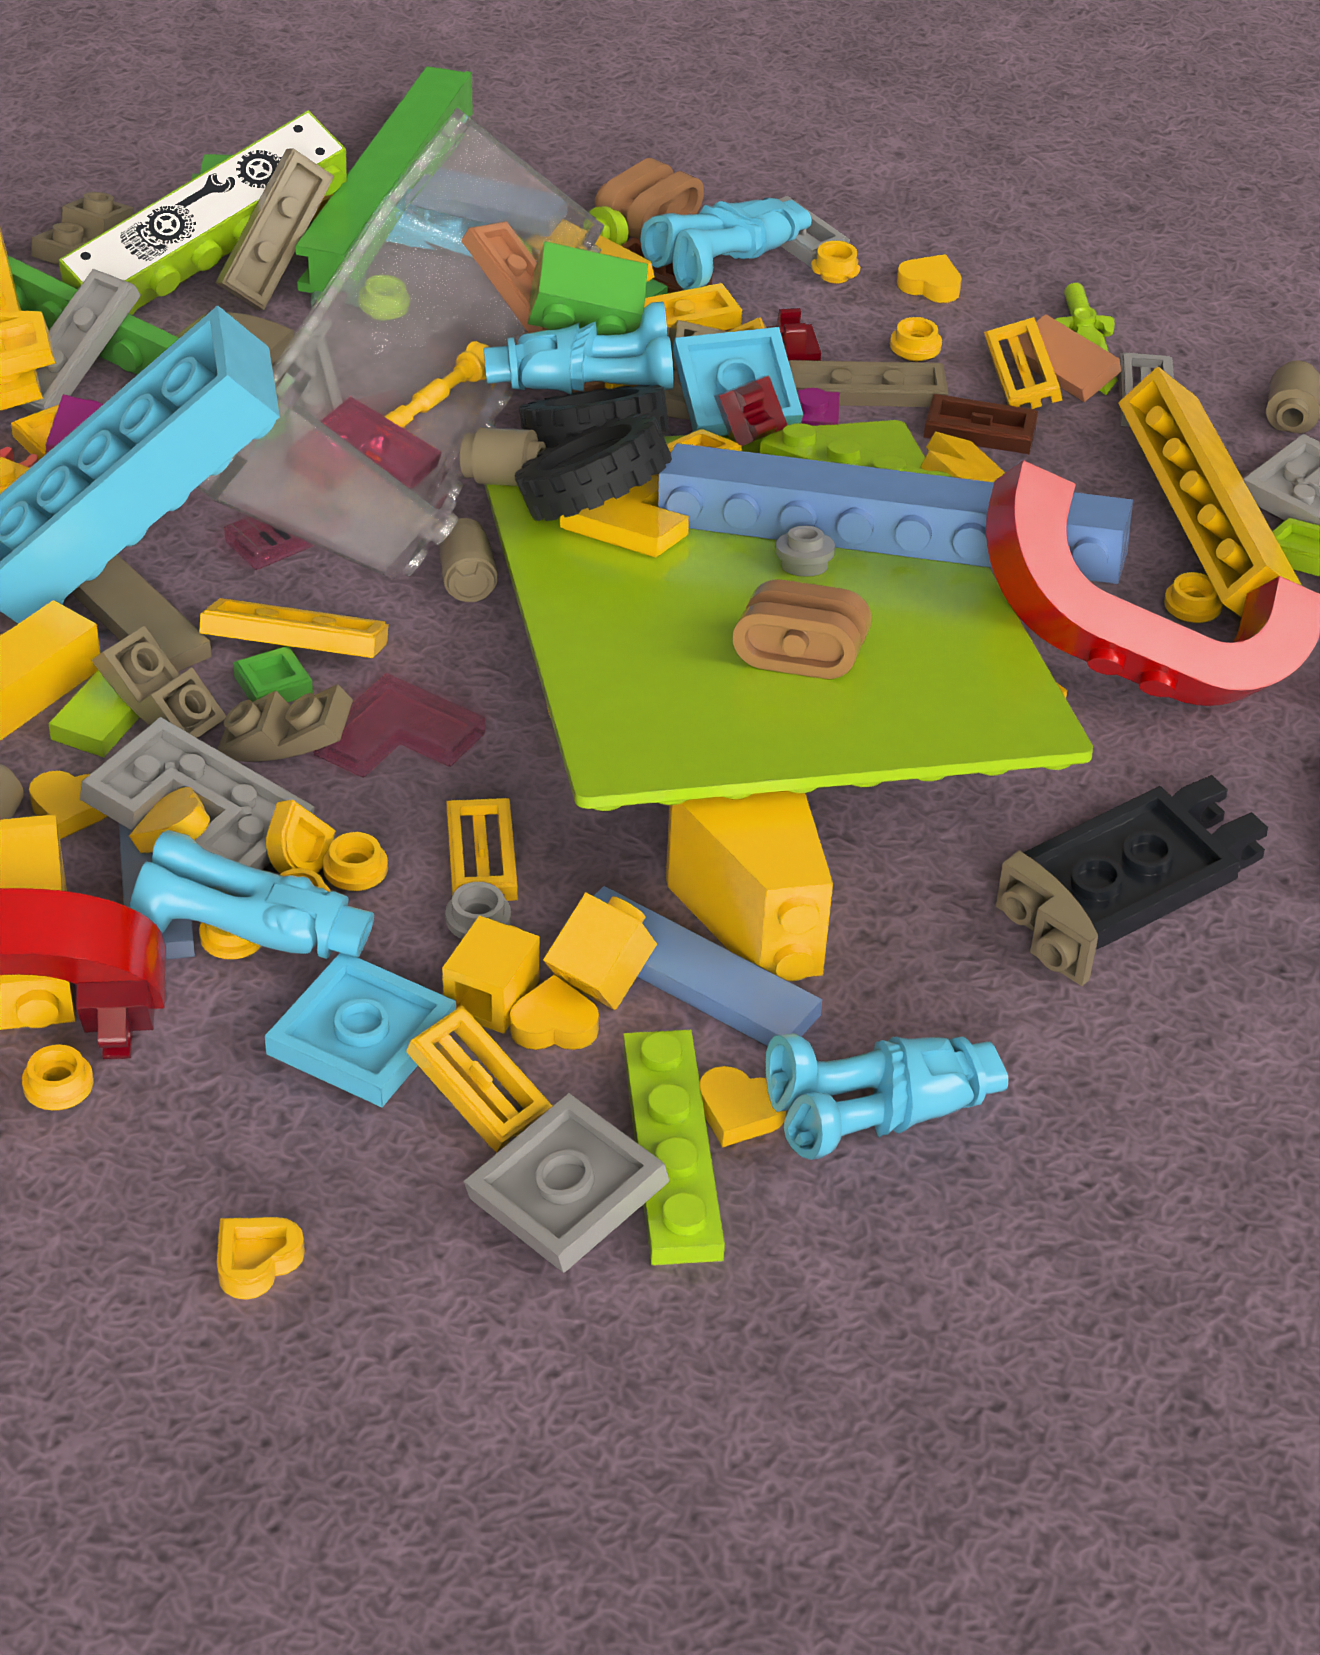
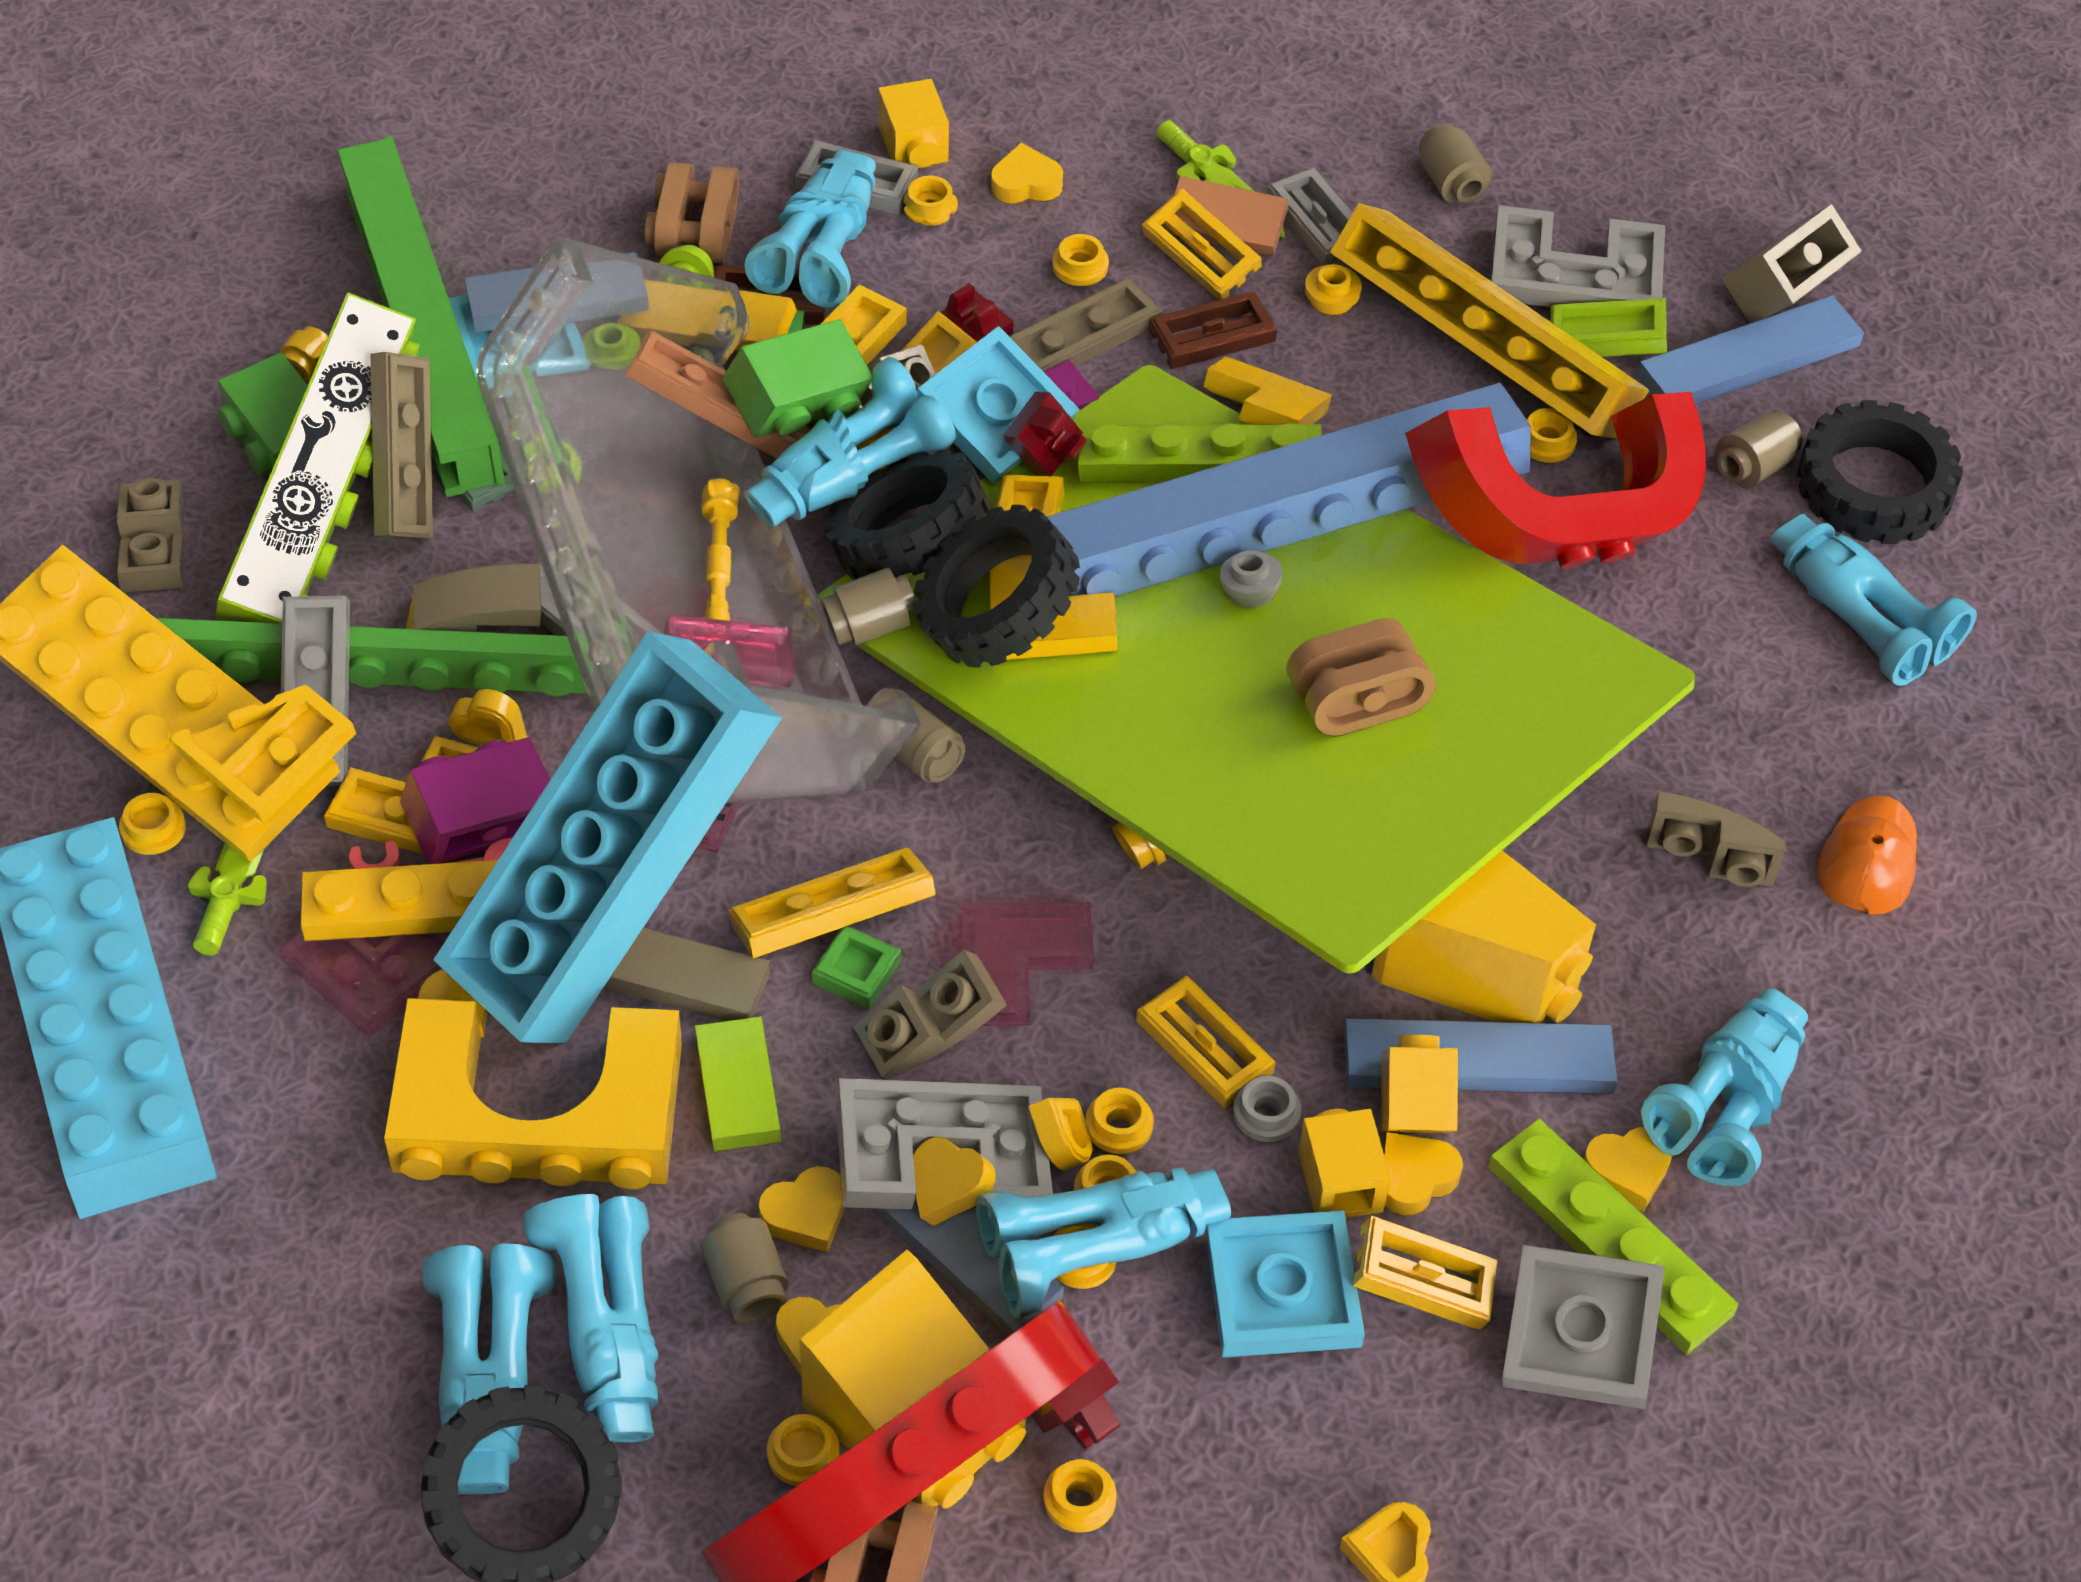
camera: 35 degrees left, 10 degrees up
(153, 686) = (789, 1048): dark tan slope -> none
(870, 210) = (914, 123): none -> yellow brick
(1107, 436) = (1333, 288): none -> yellow plate
(1151, 856) = (1728, 733): black tile -> none
(1193, 1005) = (1870, 856): none -> orange cap

